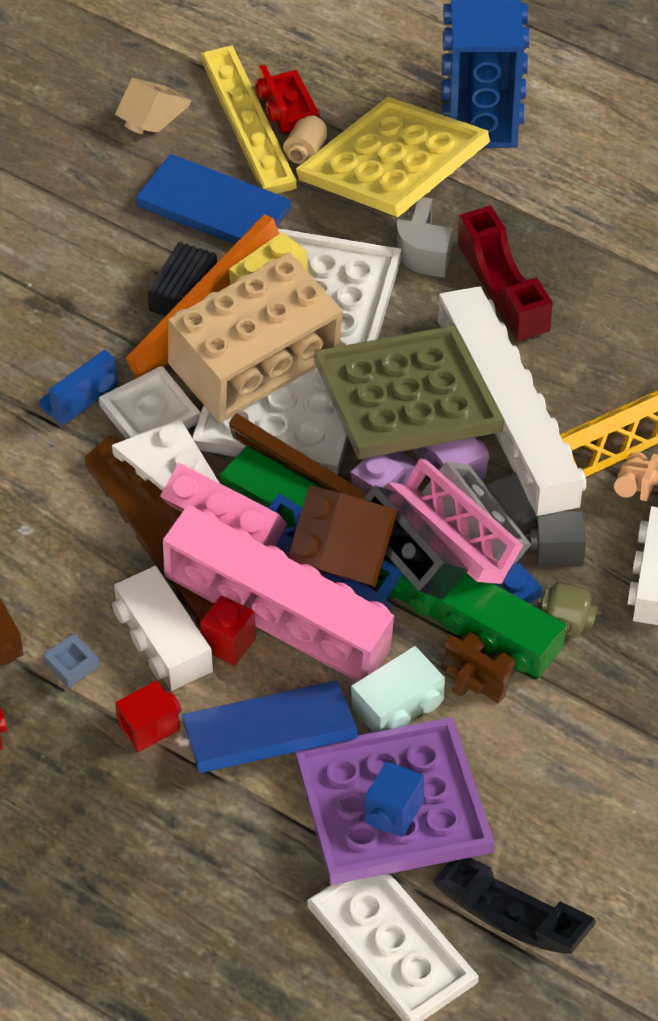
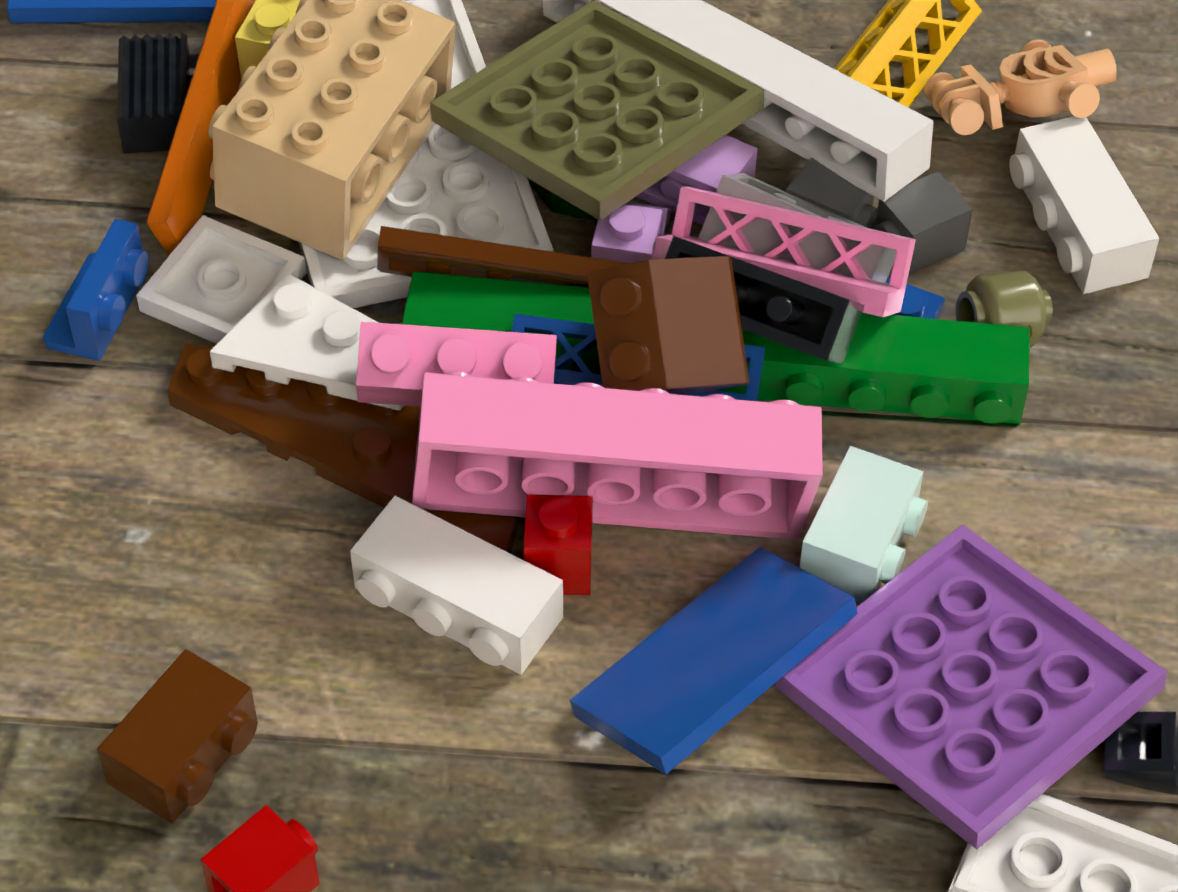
camera: 30 degrees left, 0 degrees up
(71, 660) = (347, 696): sand blue plate -> none
(148, 715) = (523, 725): red brick -> none
(394, 799) = (995, 674): blue brick -> none
(474, 670) = (943, 443): reddish brown hips -> none

